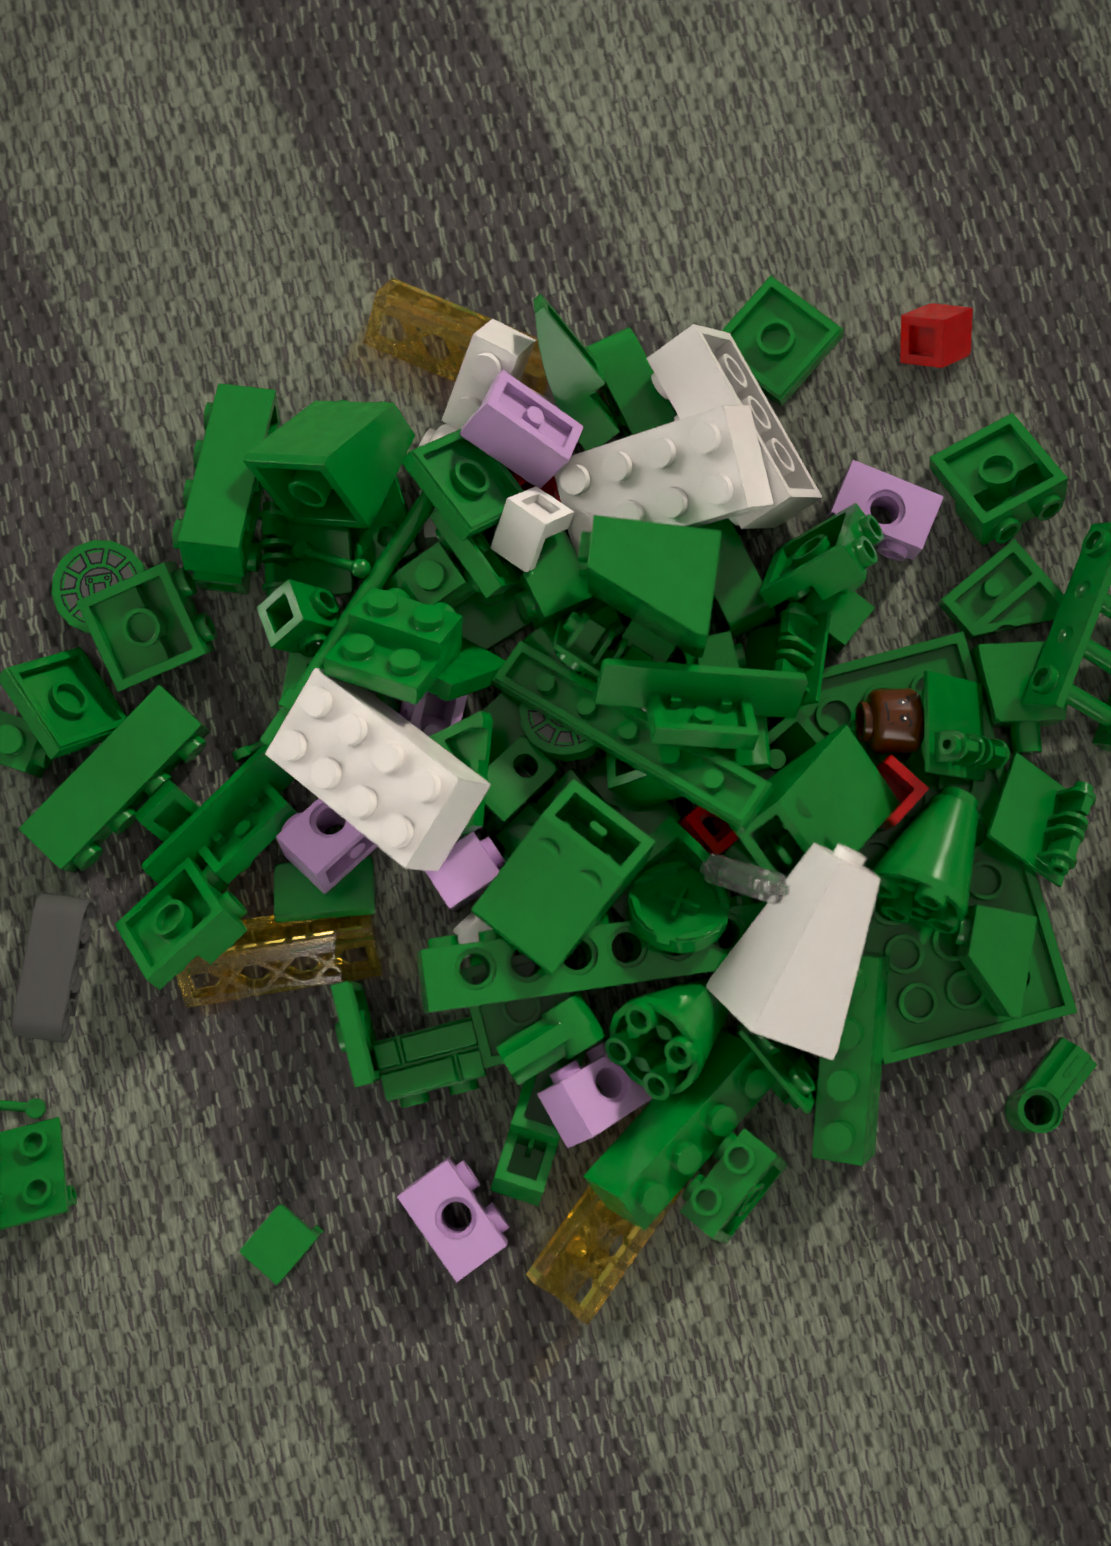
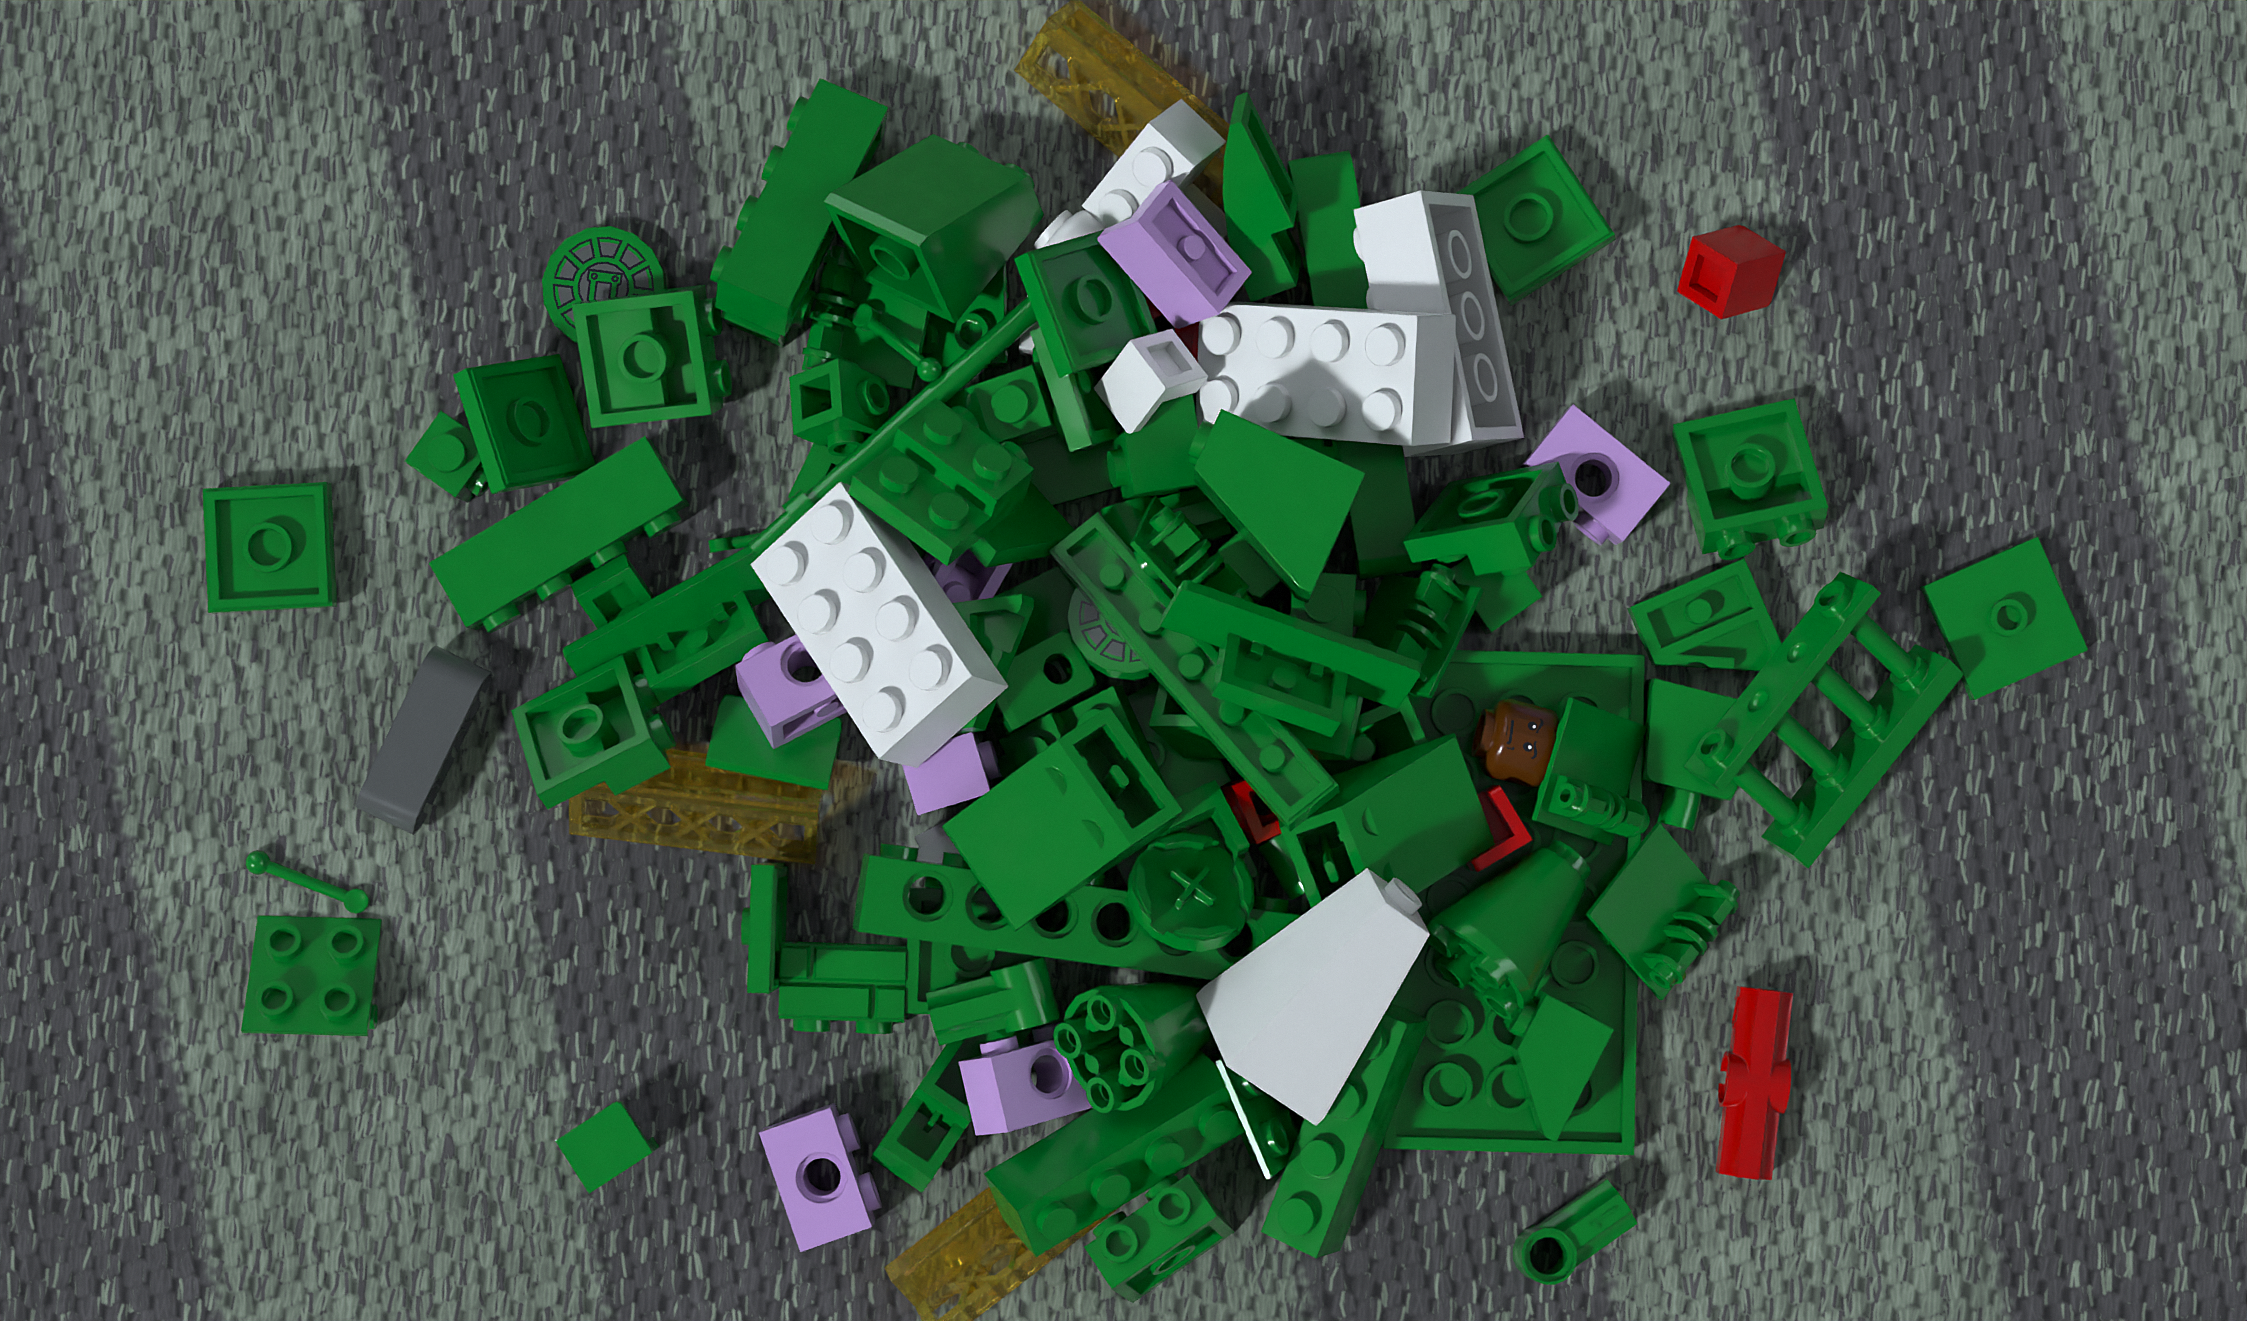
camera: 15 degrees right, 5 degrees up
(745, 878) = (1276, 883): clear axle -> none

